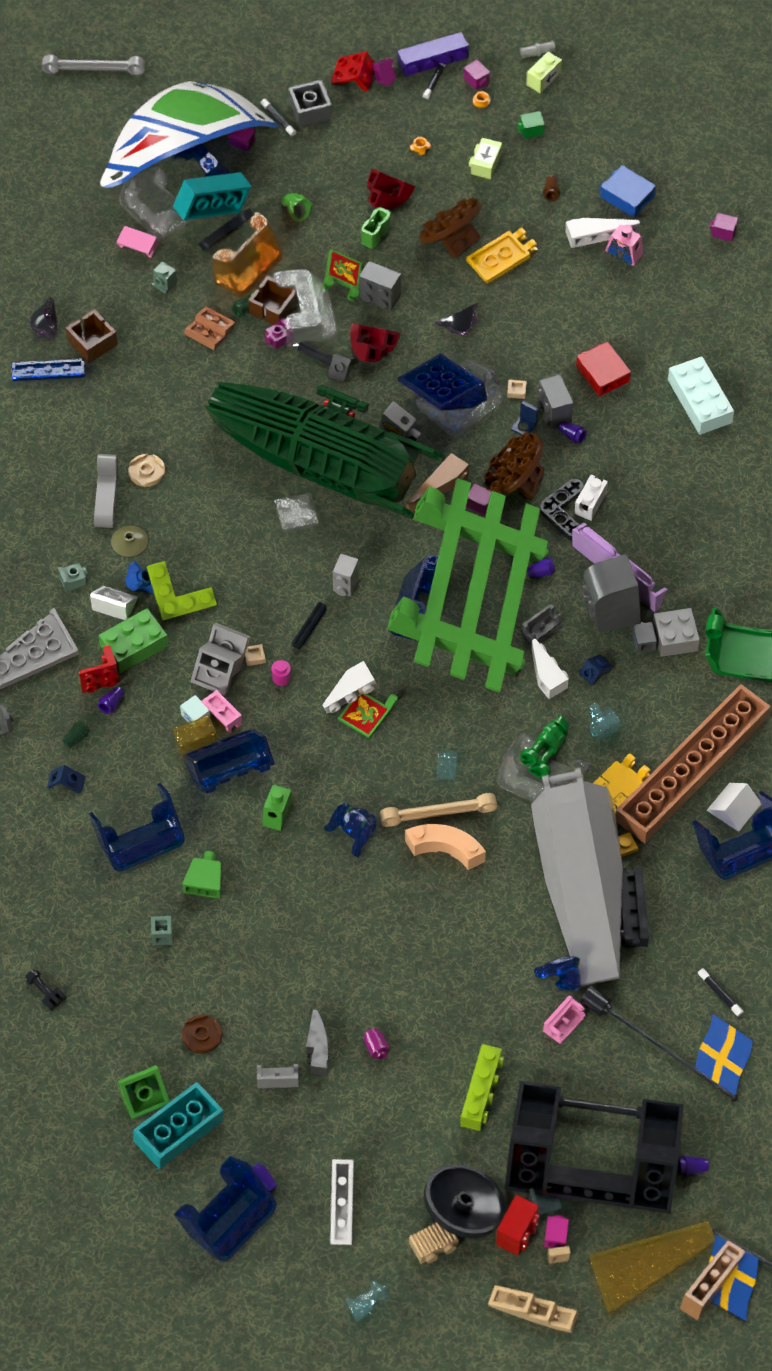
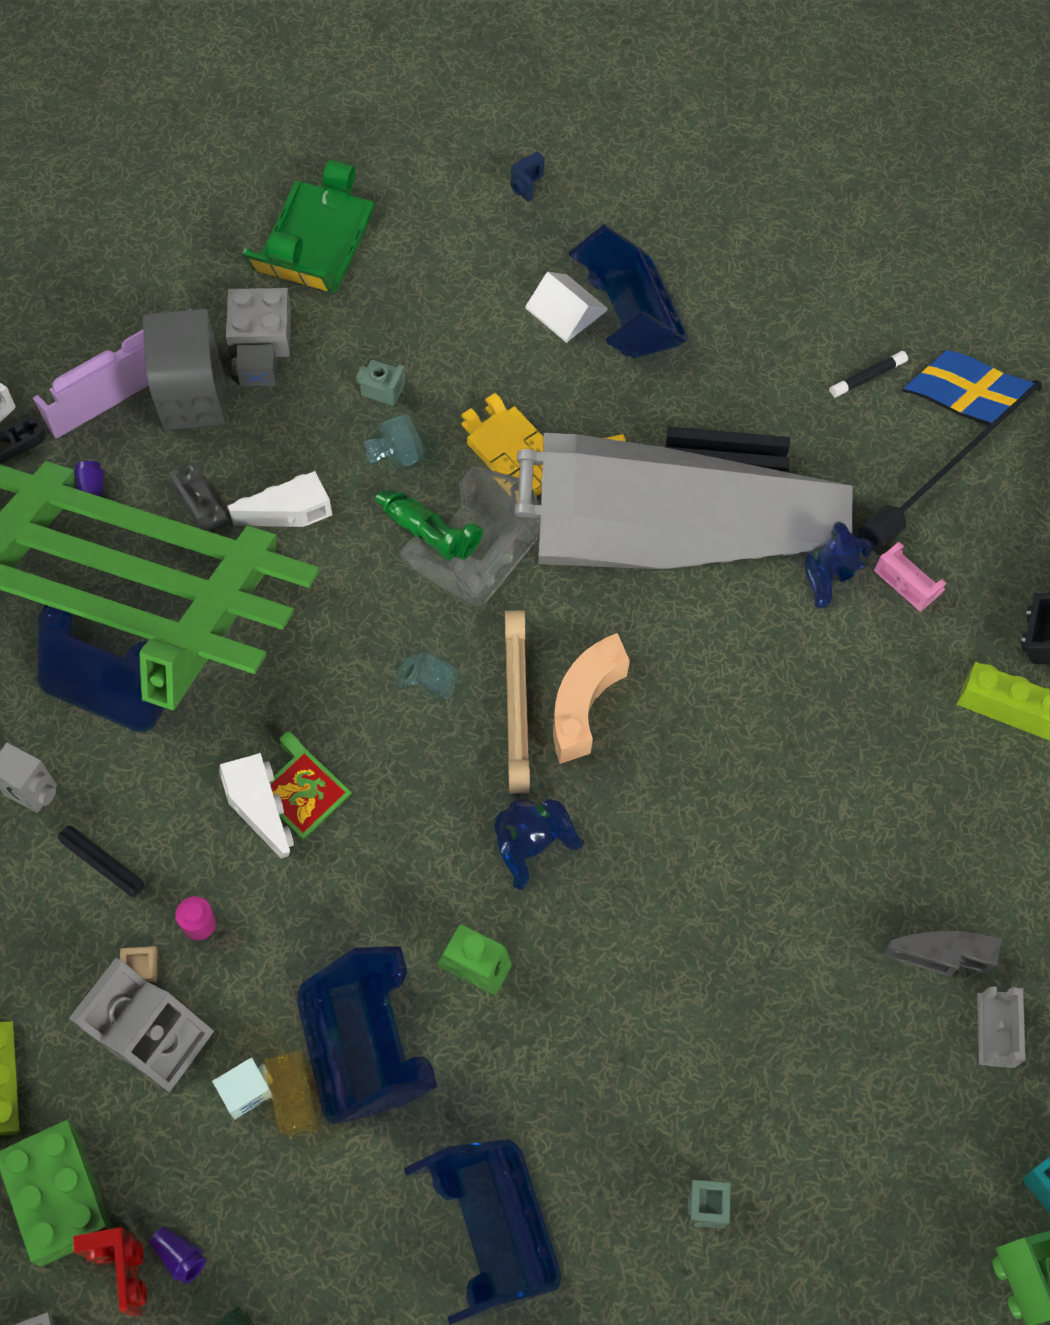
camera: 85 degrees left, 5 degrees up
(204, 877) = (596, 1110): bright green torso -> none
(207, 1036) = (905, 1166): reddish brown tile -> none
(223, 710) = (253, 1034): bright pink hinge -> none
(376, 1044) = (945, 856): magenta brick -> none
(594, 668) = (296, 439): dark blue bracket -> none
(647, 707) = (381, 381): none -> sand green brick
(692, 763) = (495, 335): nougat brick -> none

